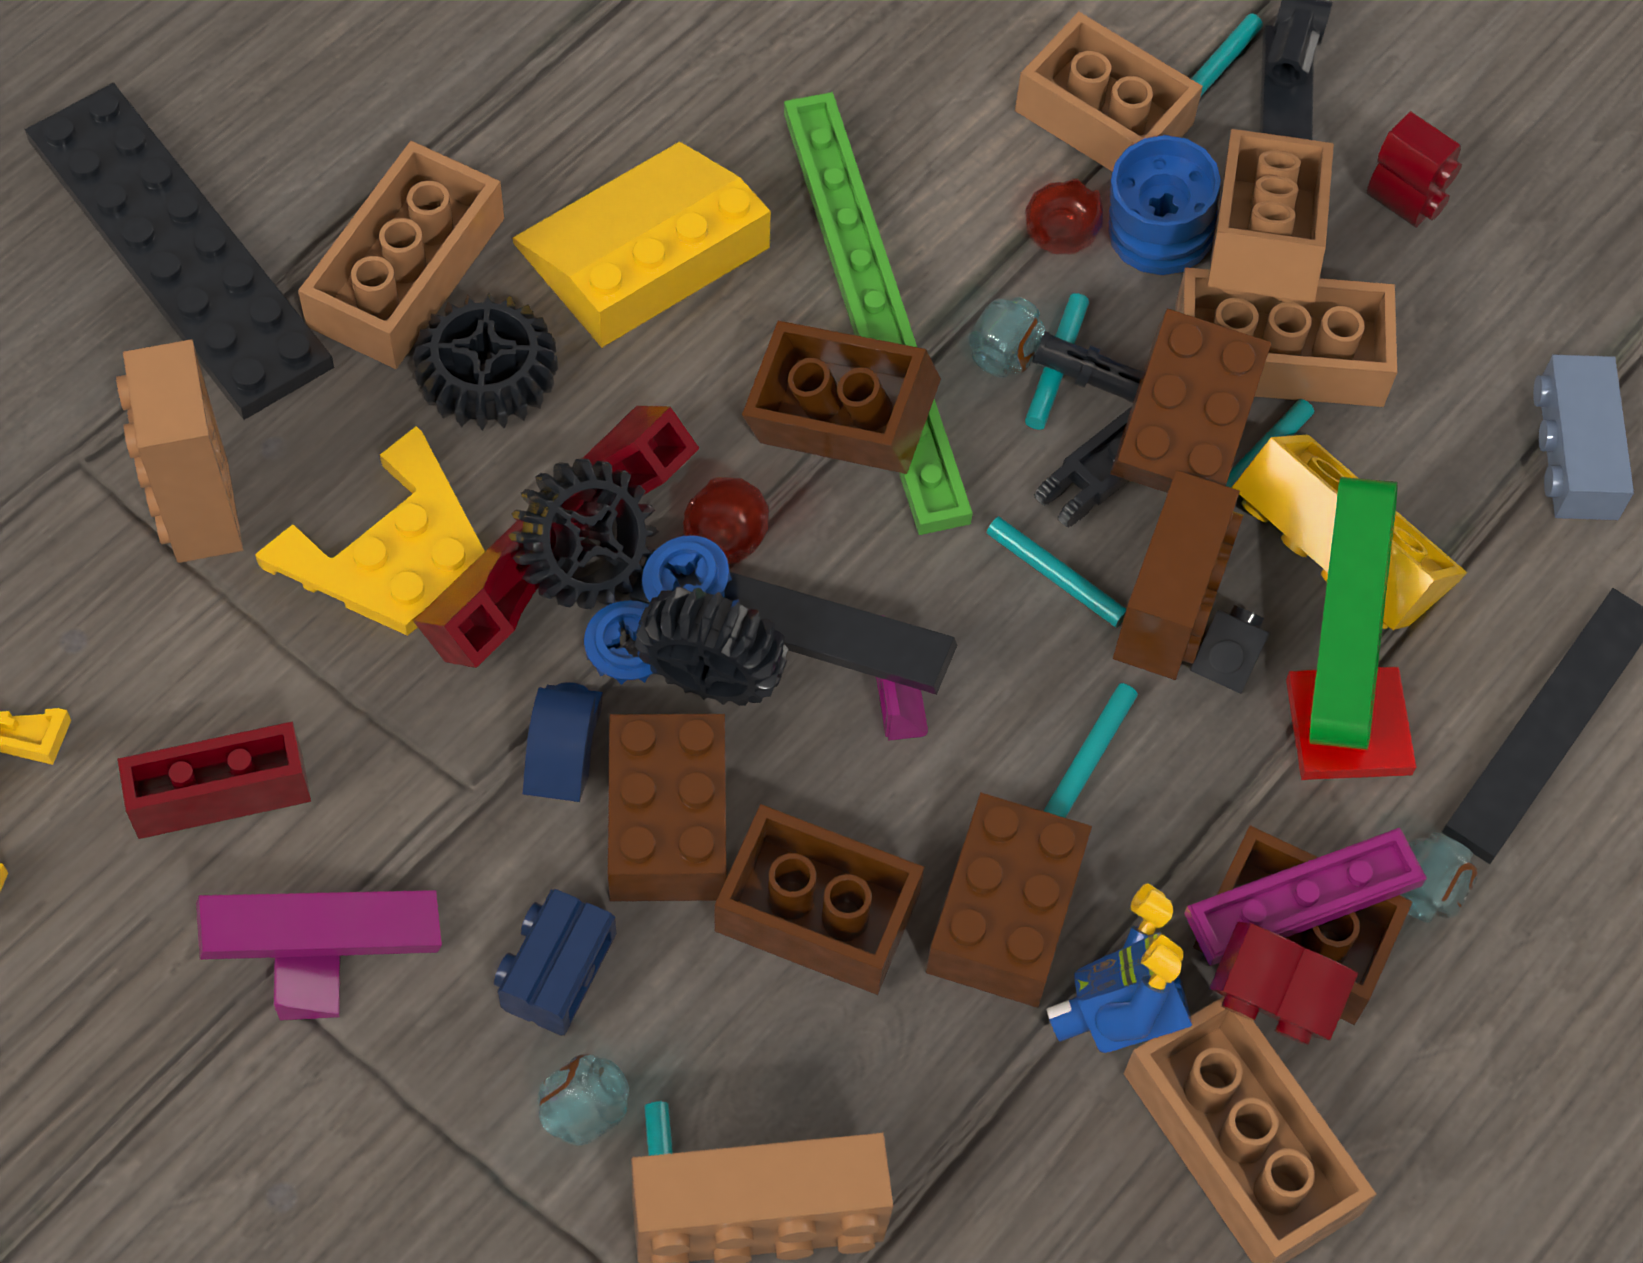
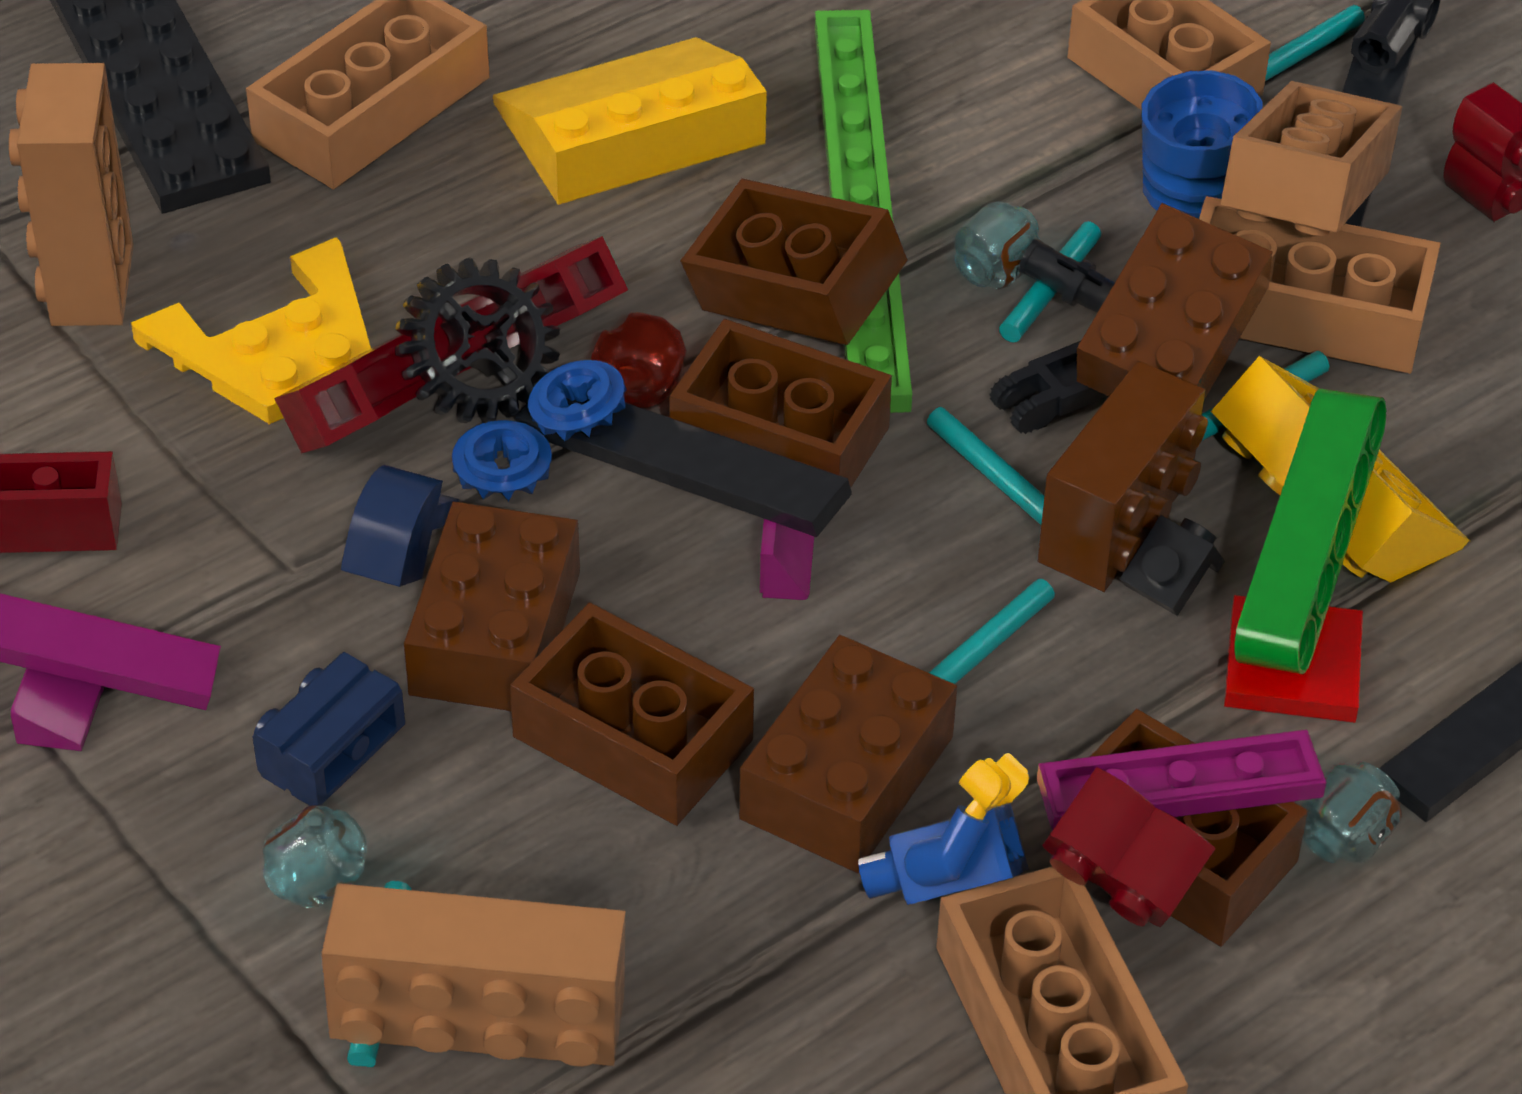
camera: 15 degrees right, 15 degrees down
(514, 376) = (427, 190): black gear -> none
(711, 646) = (583, 458): black gear -> none
(867, 551) = (785, 399): none -> reddish brown brick
(1064, 217) = (1092, 150): clear red hair -> none

